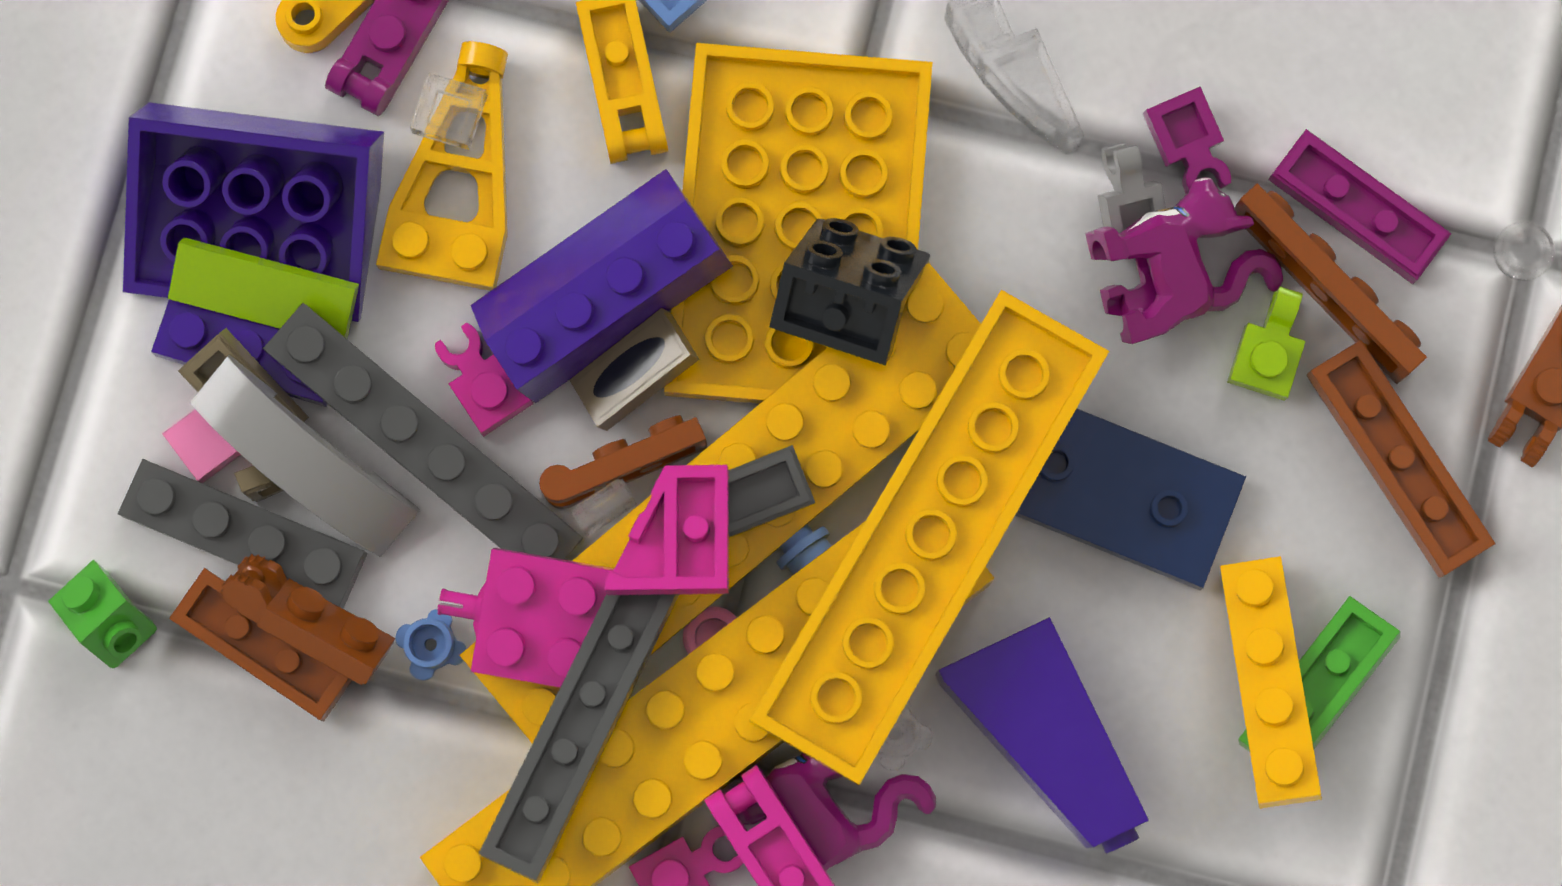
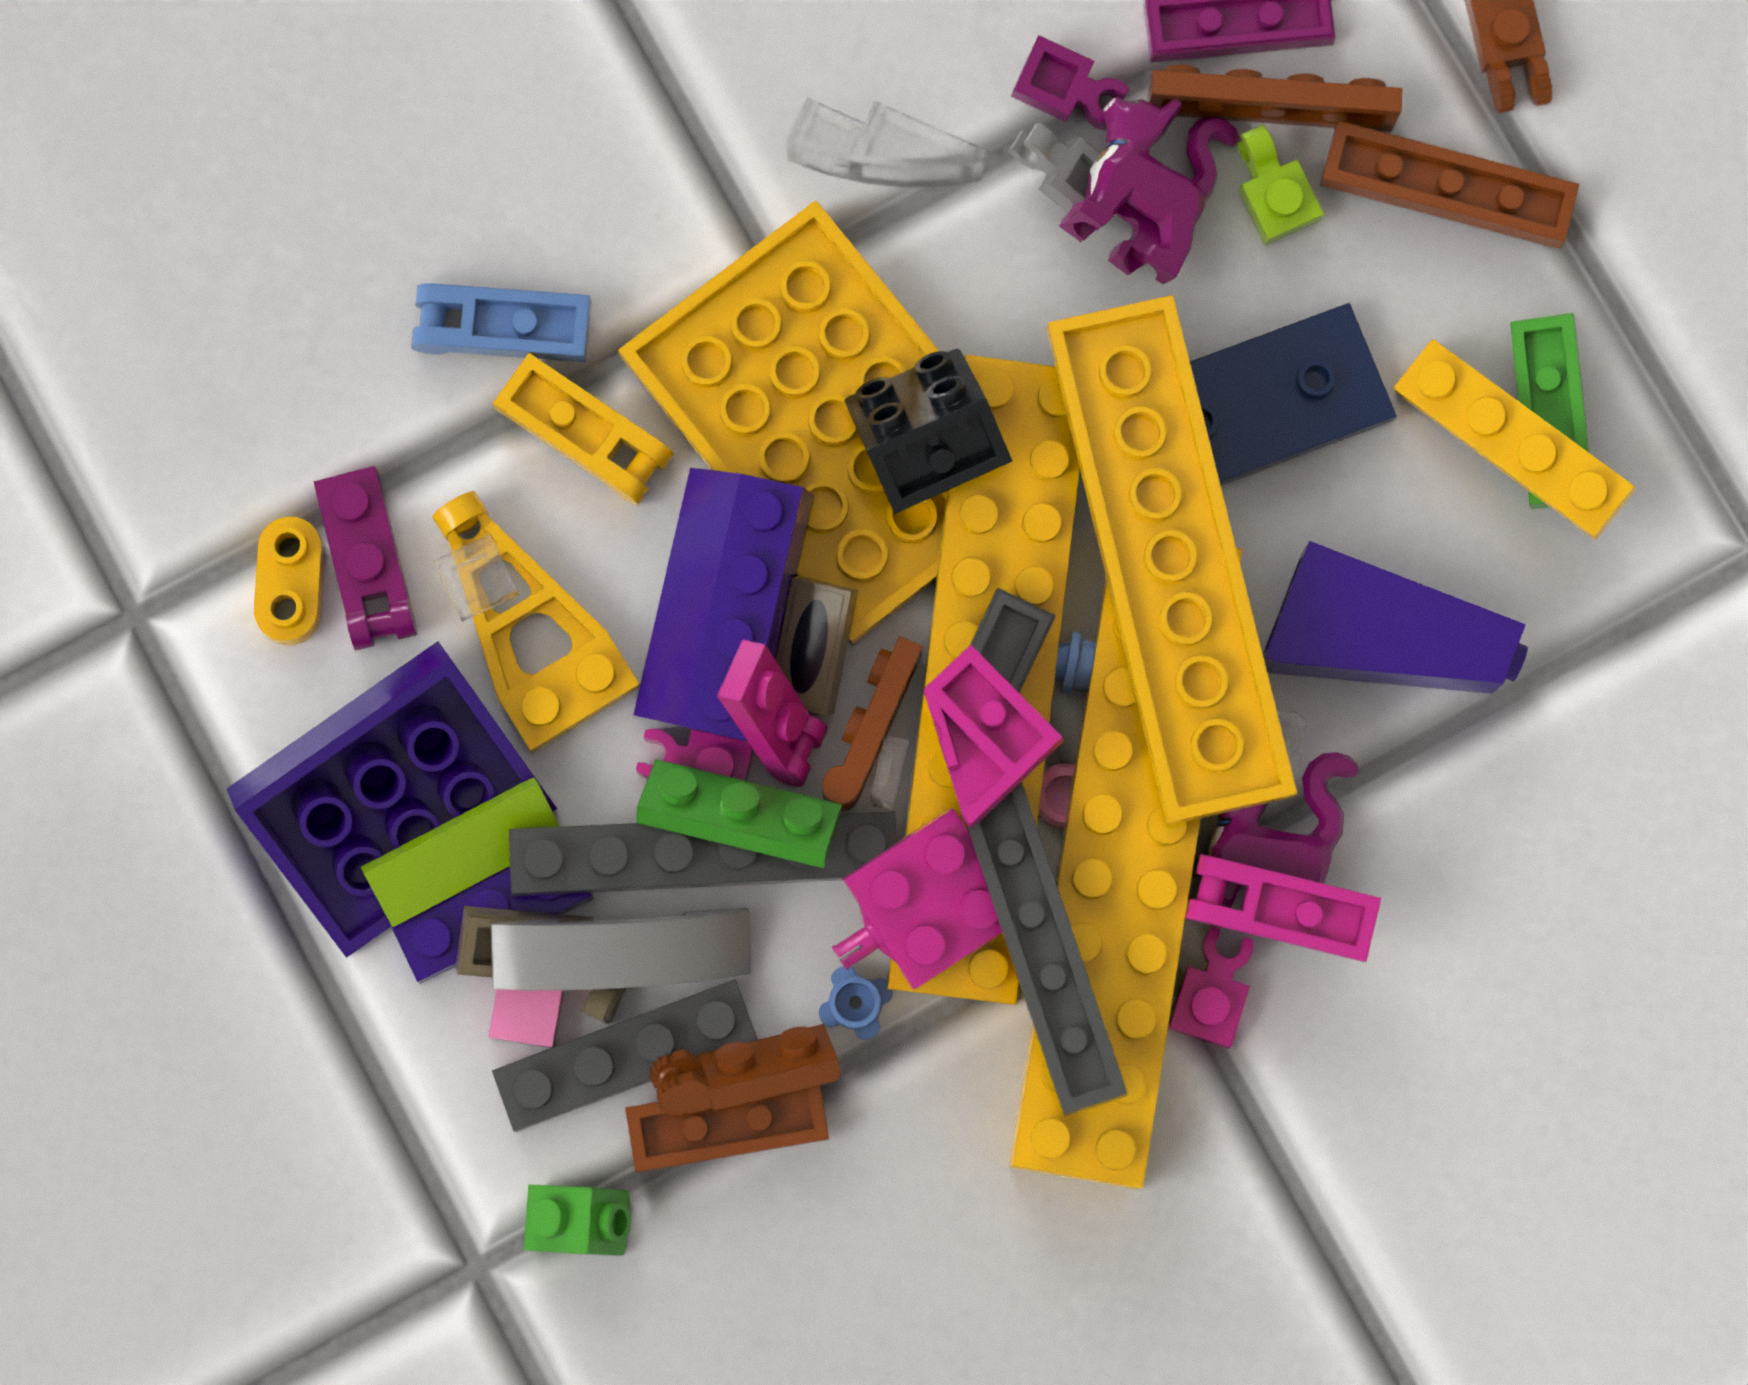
camera: 45 degrees left, 0 degrees up
(469, 438) = (739, 813): none -> bright green plate
(552, 386) = (771, 714): none -> dark pink plate

